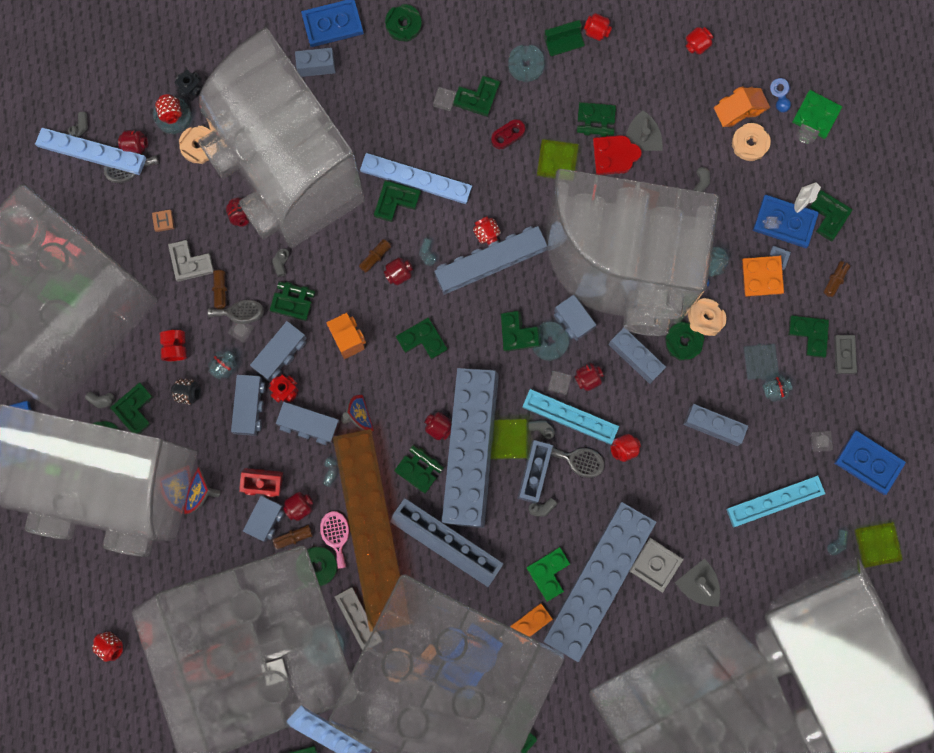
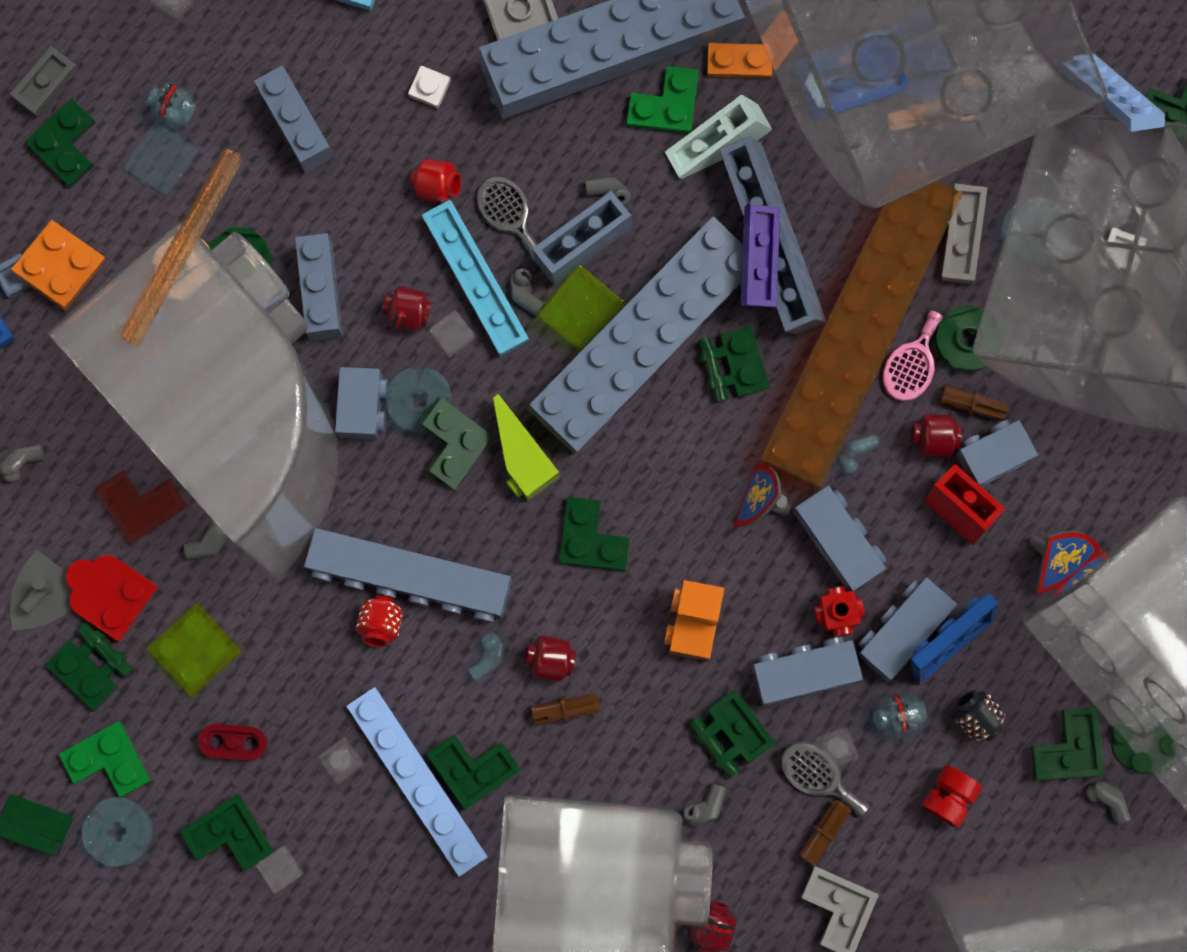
camera: 140 degrees left, 0 degrees up
(222, 414) = (953, 637): none -> blue plate
(438, 426) = (663, 399): dark red head -> none
(442, 522) = (760, 256): none -> dark purple plate
(455, 162) = (341, 760): none -> clear plate
(481, 350) = (525, 461): none -> lime slope
(510, 574) = (731, 124): none -> light aqua slope
(557, 92) = (110, 751): none -> green plate
(667, 492) = (429, 87): none -> white plate
(692, 276) = (181, 247): none -> clear orange axle

